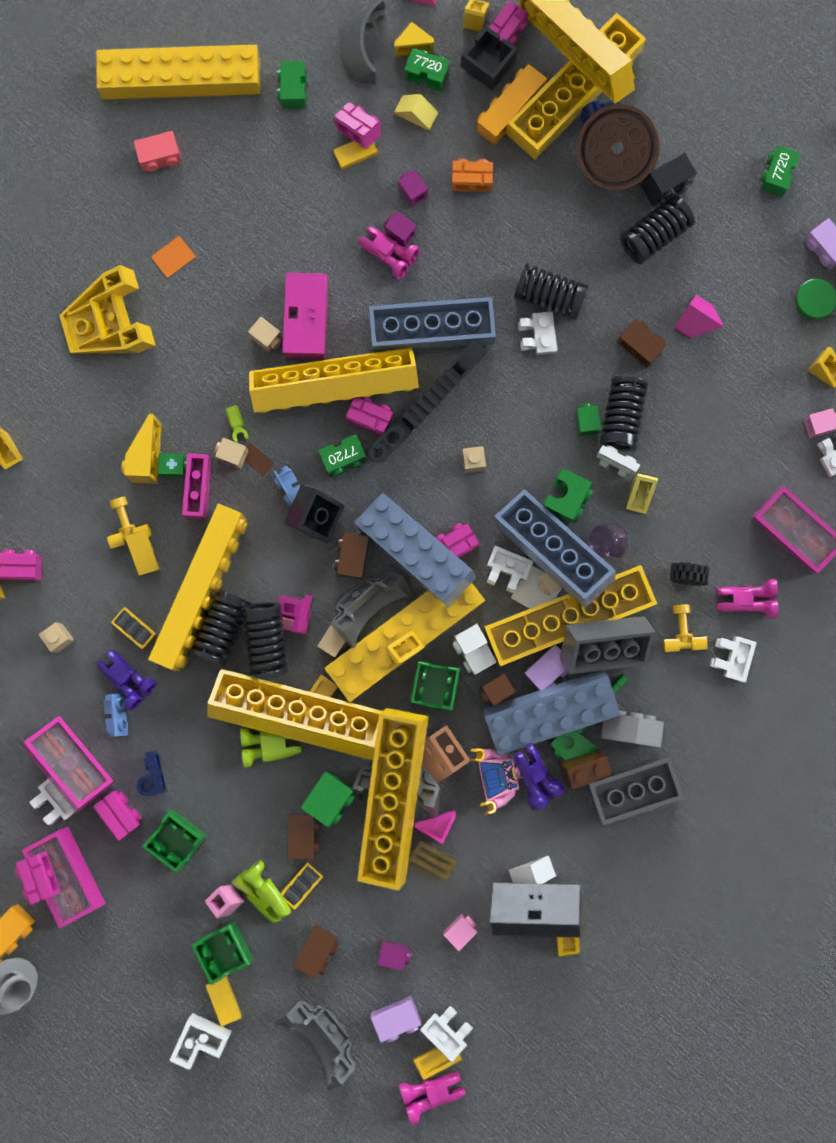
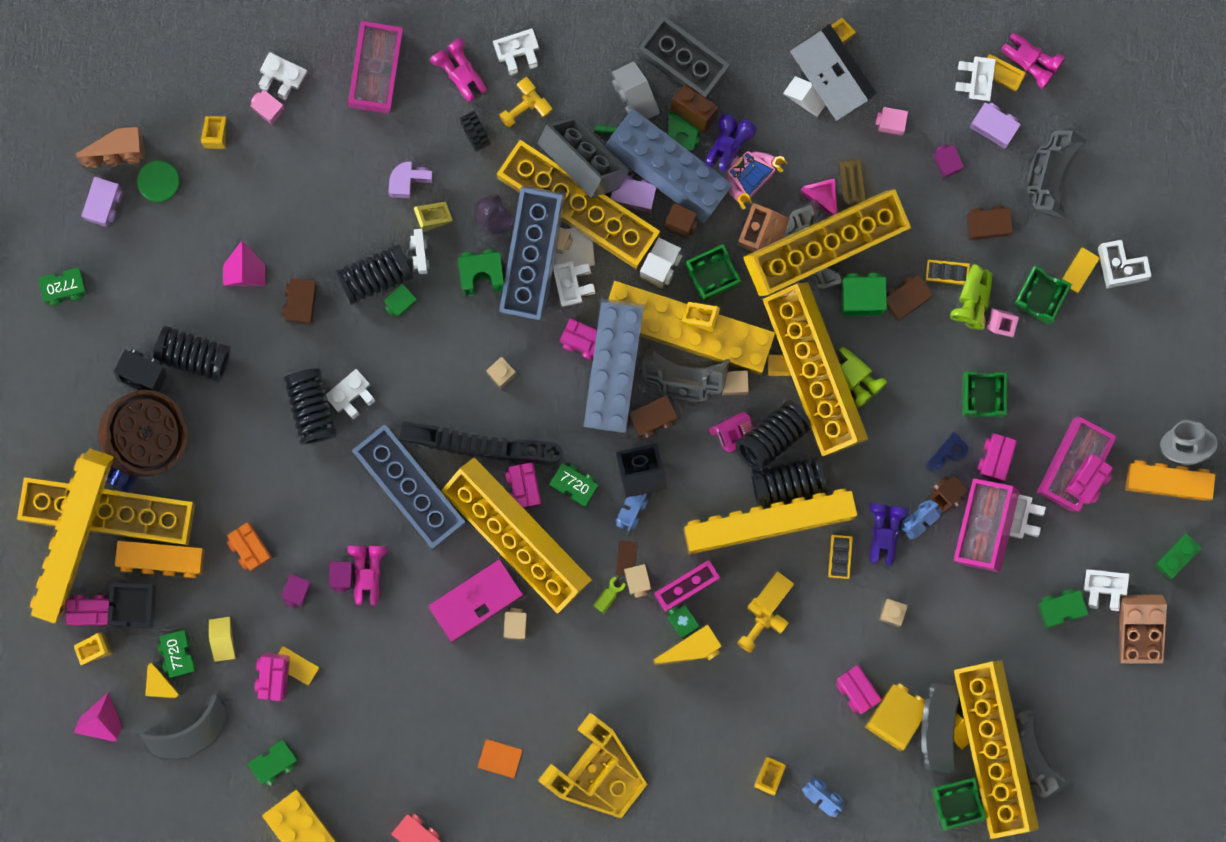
camera: 125 degrees left, 0 degrees up
(118, 752) = (948, 492): none -> reddish brown brick
(689, 490) = (402, 179): none -> lavender brick

